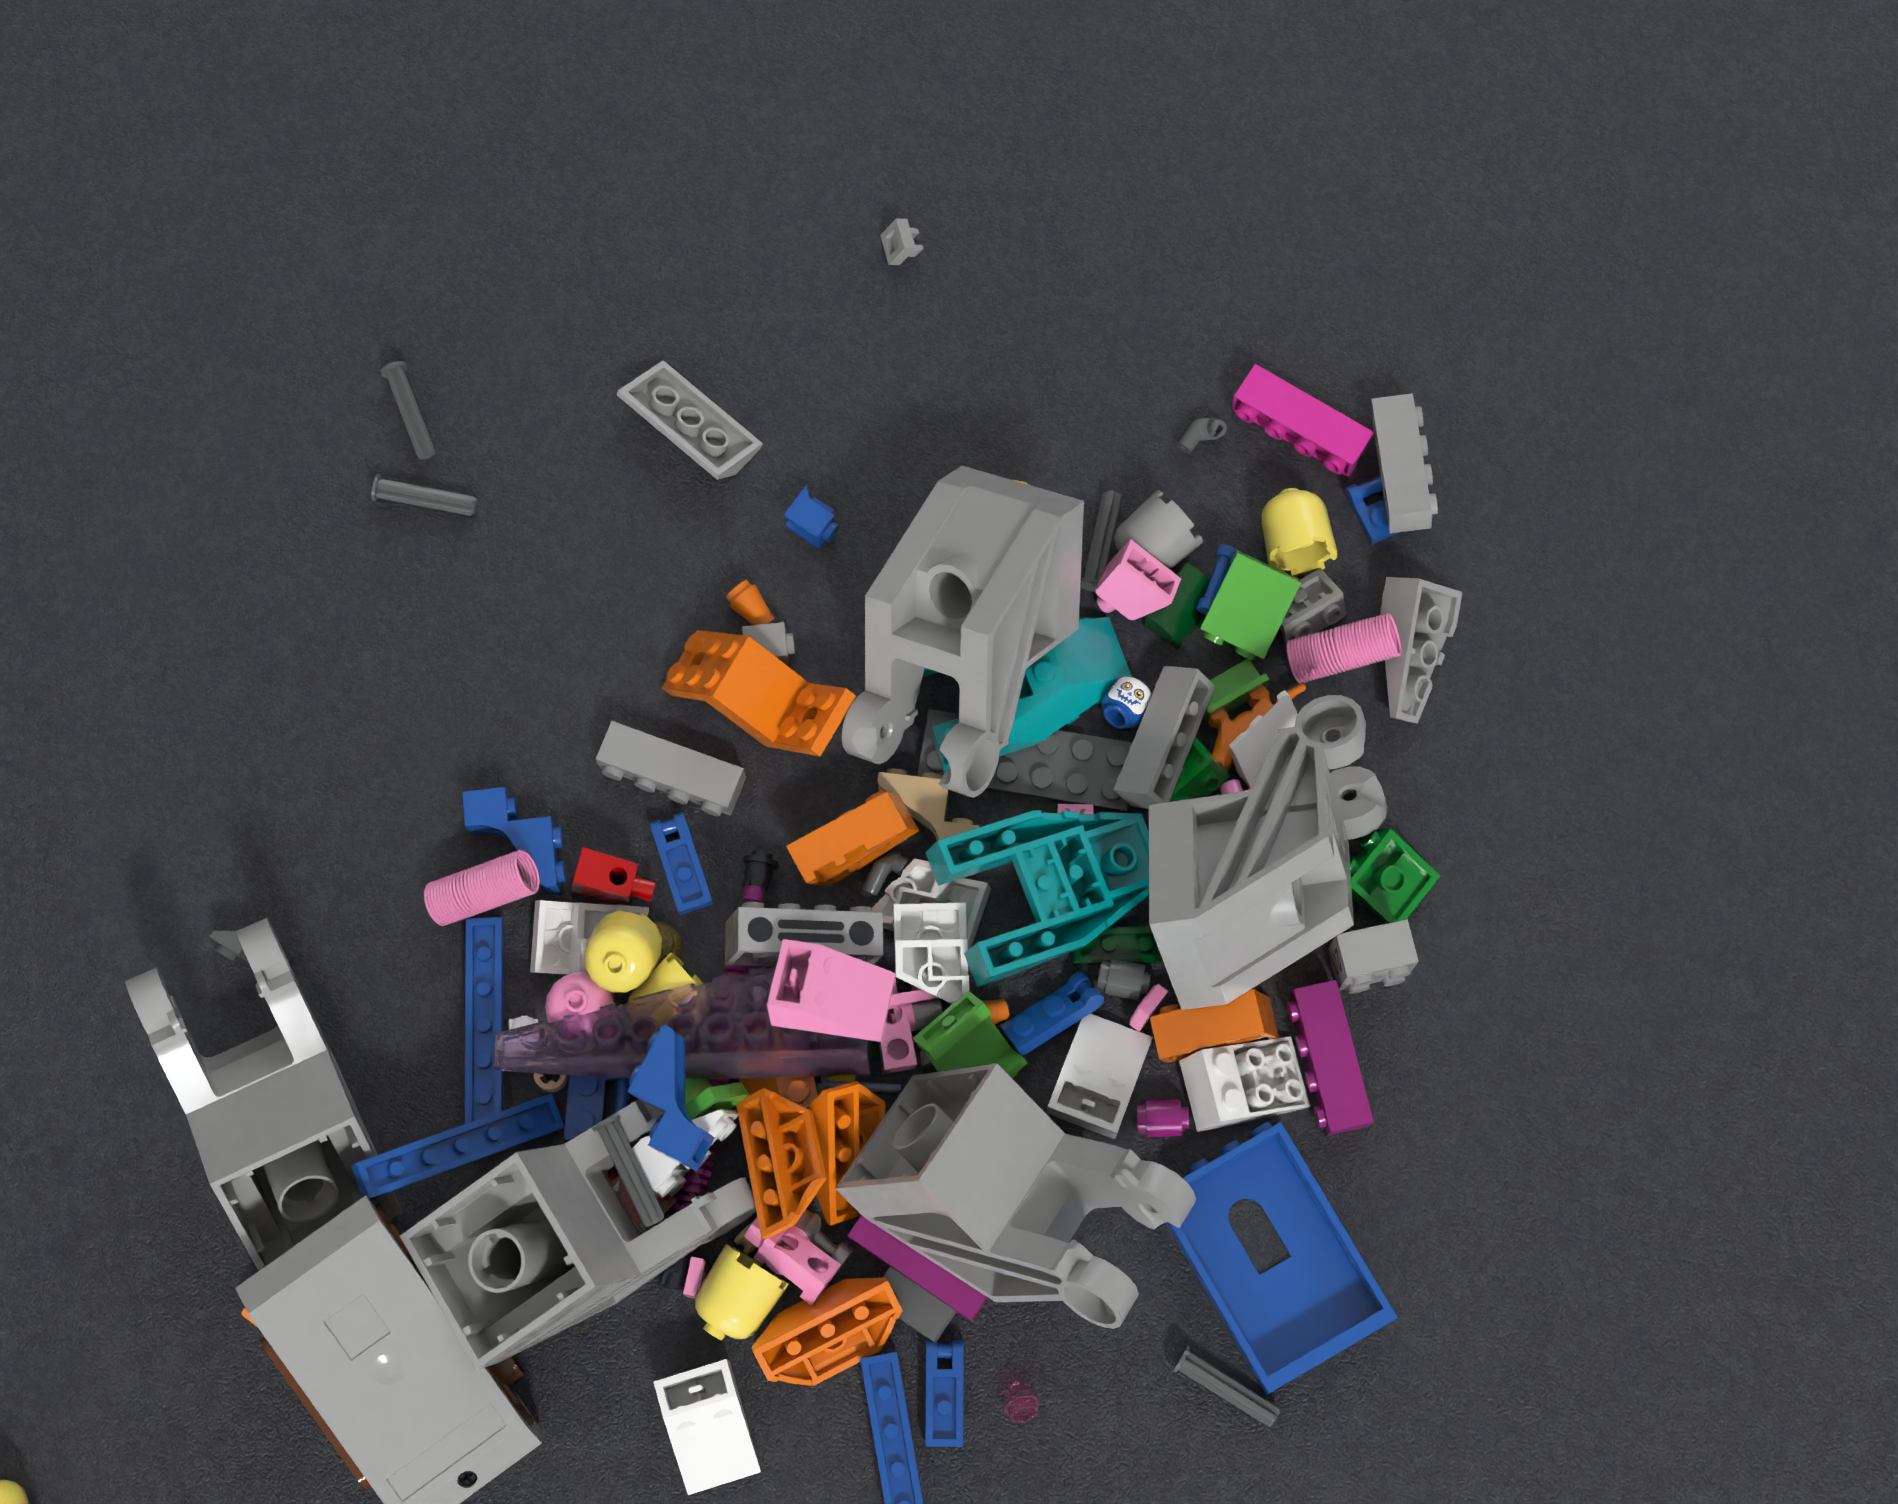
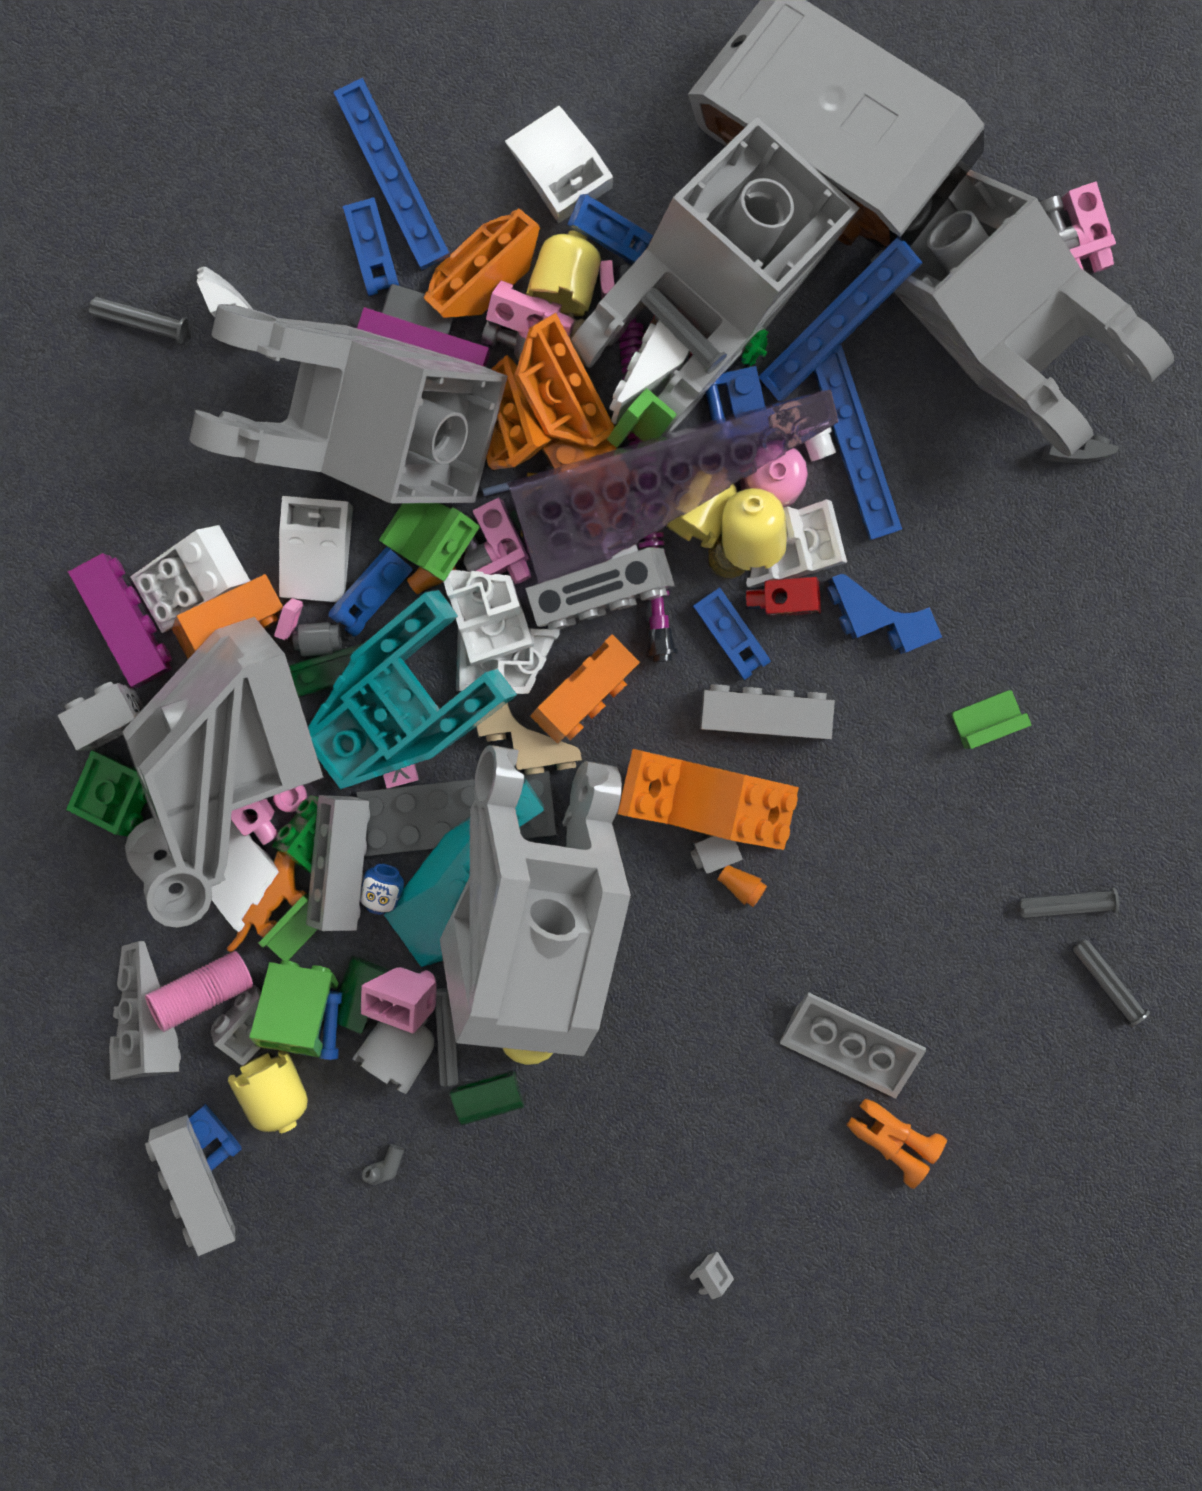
camera: 165 degrees right, 15 degrees up
(159, 1175) = (1090, 227): none -> bright pink hips
(441, 699) = (989, 720): none -> bright green panel
(483, 888) = (896, 555): bright pink piece -> none
(662, 1085) = (677, 404): blue arch -> none
(675, 1328) = (609, 229): none -> blue plate
(681, 324) = (888, 1137): none -> orange piece
(811, 519) = (712, 981): blue window -> none
(829, 992) = (557, 532): bright pink slope -> none
(883, 867) = (555, 676): dark grey arm -> none
(1021, 1403) = (306, 257): clear pink plate -> none
(1077, 471) = (487, 1098): none -> dark green brick
(1121, 1375) = (218, 291): none -> white slope
(1162, 1118) = (251, 528): magenta brick -> none
(1301, 421) = (295, 1203): dark pink brick -> none
(1303, 1305) = (91, 404): blue panel -> none

